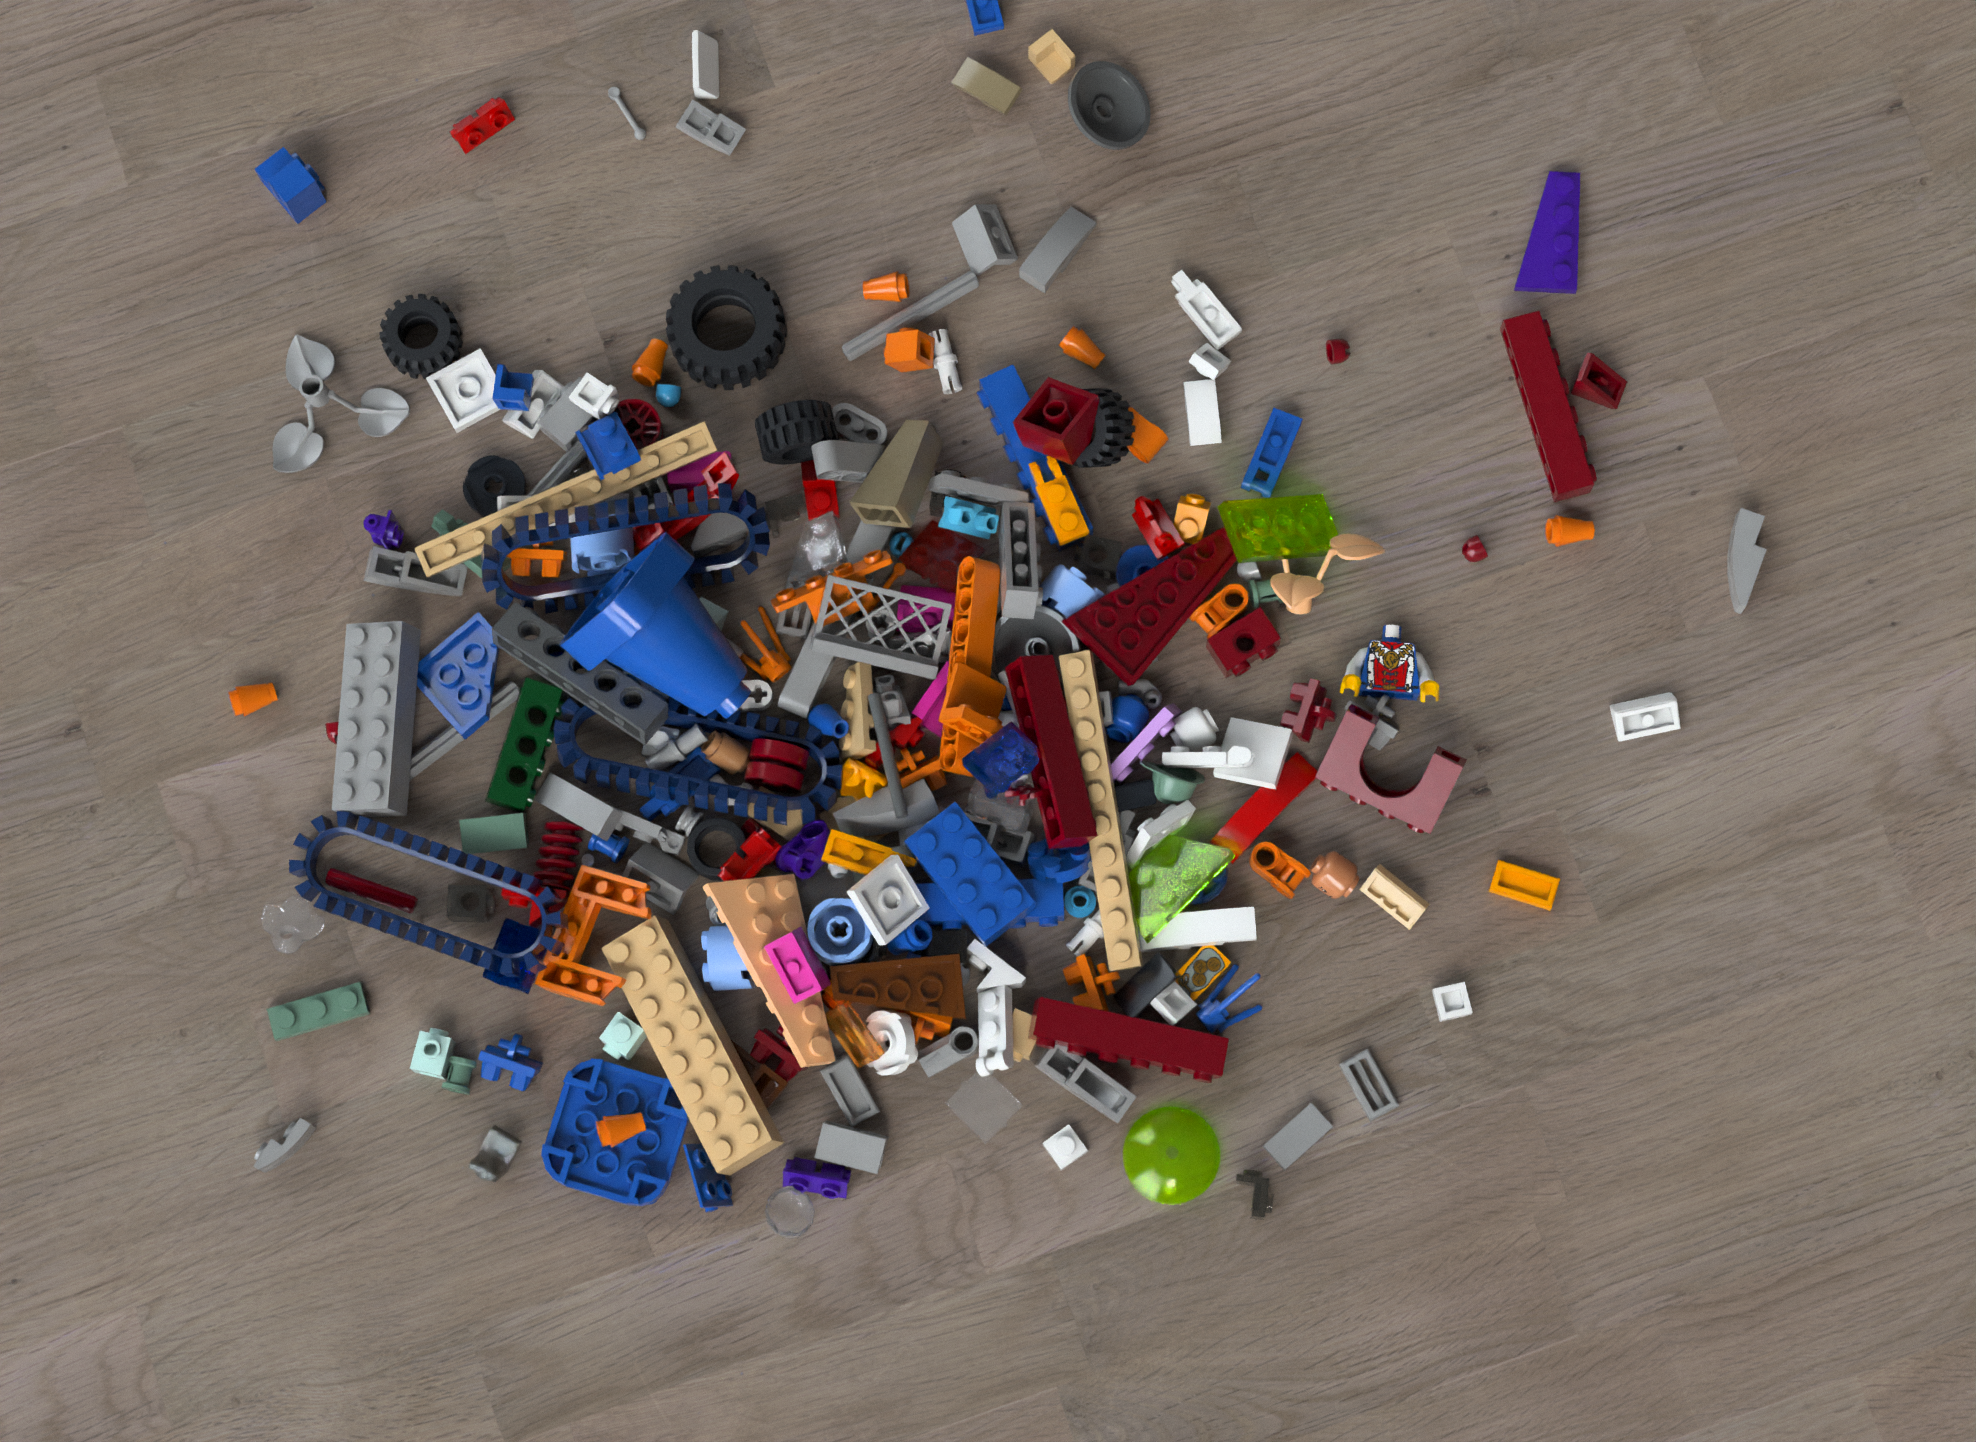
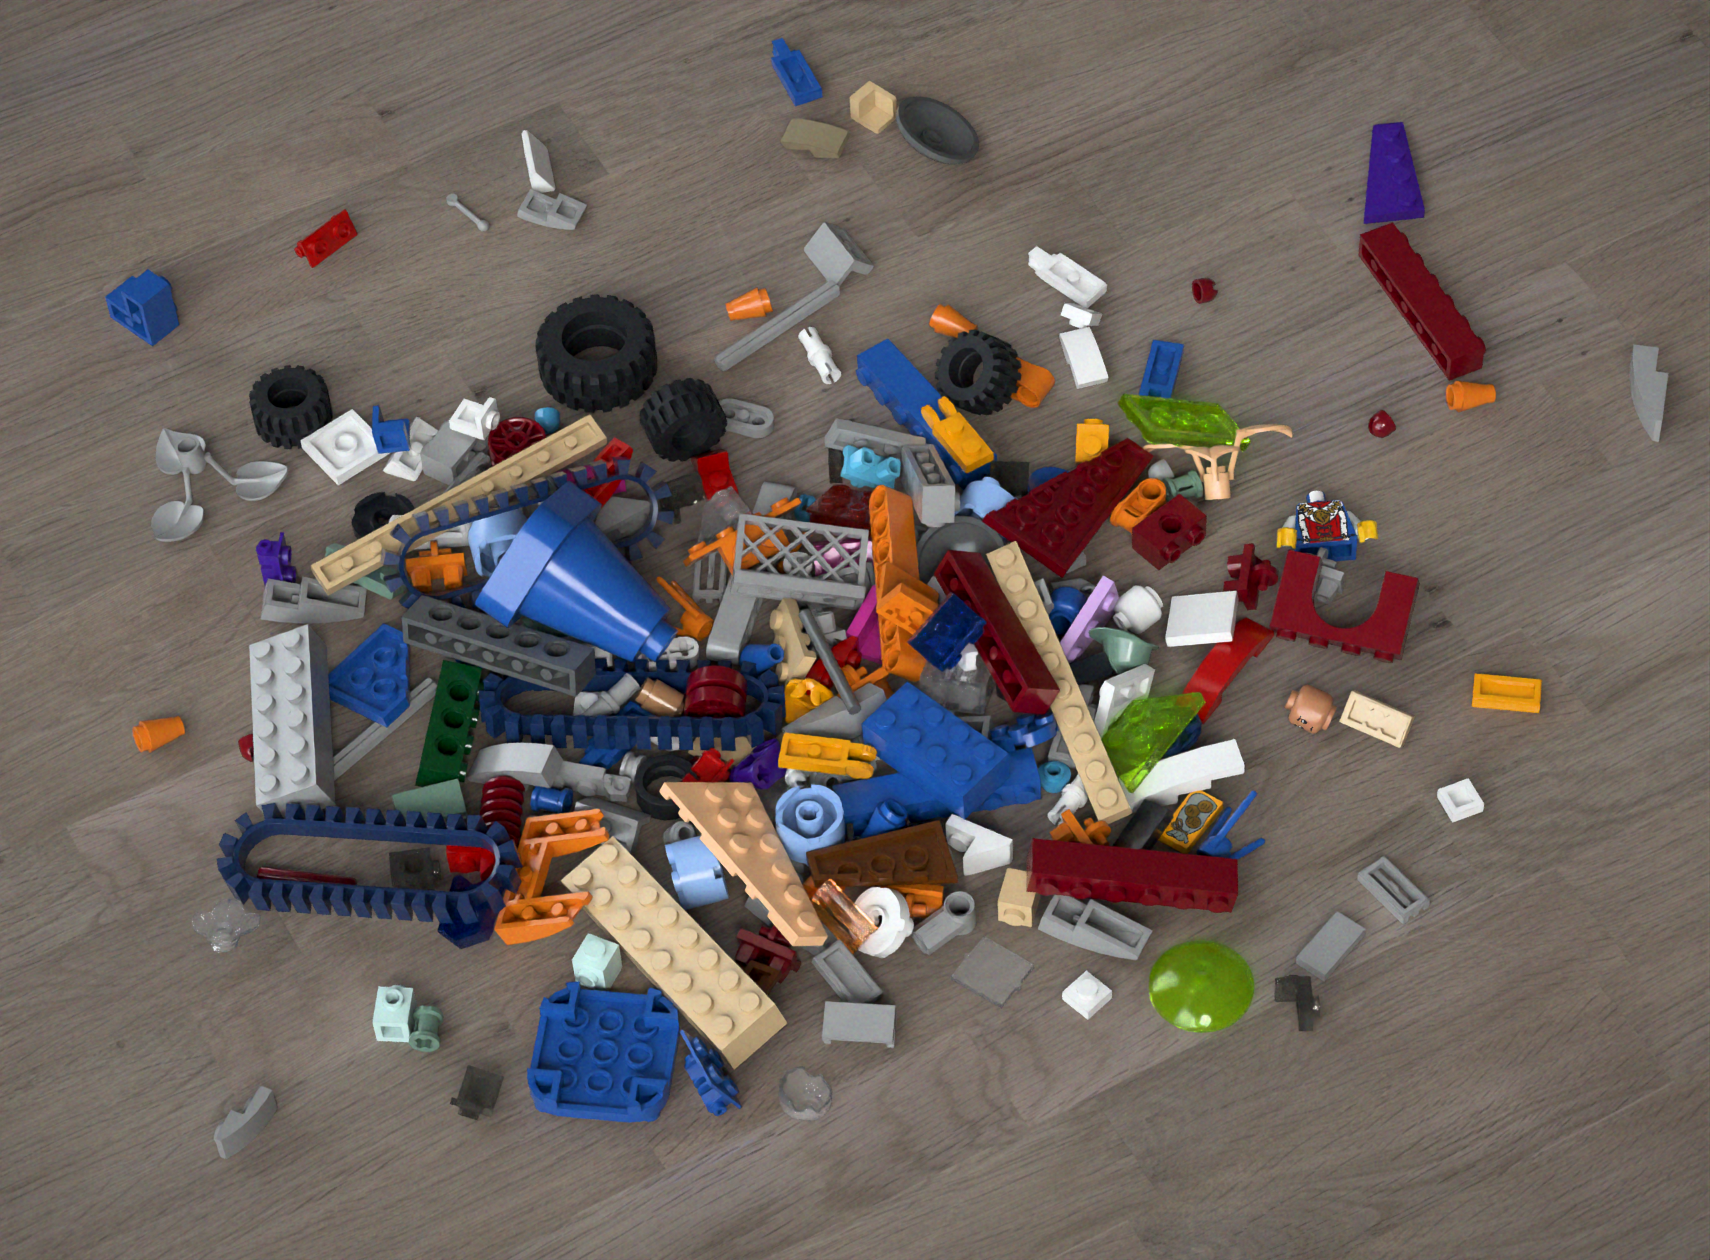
camera: 10 degrees left, 25 degrees down
(318, 1011) = (265, 999): sand green plate -> none
(496, 1059) = (494, 1010): blue hips -> none
(608, 445) = (495, 449): blue plate -> none
(618, 1128) = (607, 1040): orange cone -> none
(649, 366) = (525, 398): orange cone -> none
(797, 965) = (770, 845): dark pink panel -> none
(829, 1183) = (833, 1064): dark purple hinge -> none
(845, 460) = (742, 436): light grey beam -> none
(888, 899) = (855, 776): white plate -> none
(899, 477) = (793, 440): dark tan slope -> none
(909, 350) = (782, 346): orange brick -> none
(995, 1030) = (990, 888): white plate -> none
(1024, 792) = (974, 665): dark red plant -> none
(1056, 249) = (909, 252): light grey slope -> none
(1058, 420) = (942, 363): dark red slope -> none
(1156, 527) = (1058, 450): red hinge -> none
(1173, 1003) = (1171, 839): white plate -> none
(1210, 757) = (1162, 618): white hinge -> none
(1279, 870) = (1250, 712): orange piece -> none
(1599, 383) = (1465, 275): dark red slope -> none
(1645, 716) = (1589, 535): white slope -> none

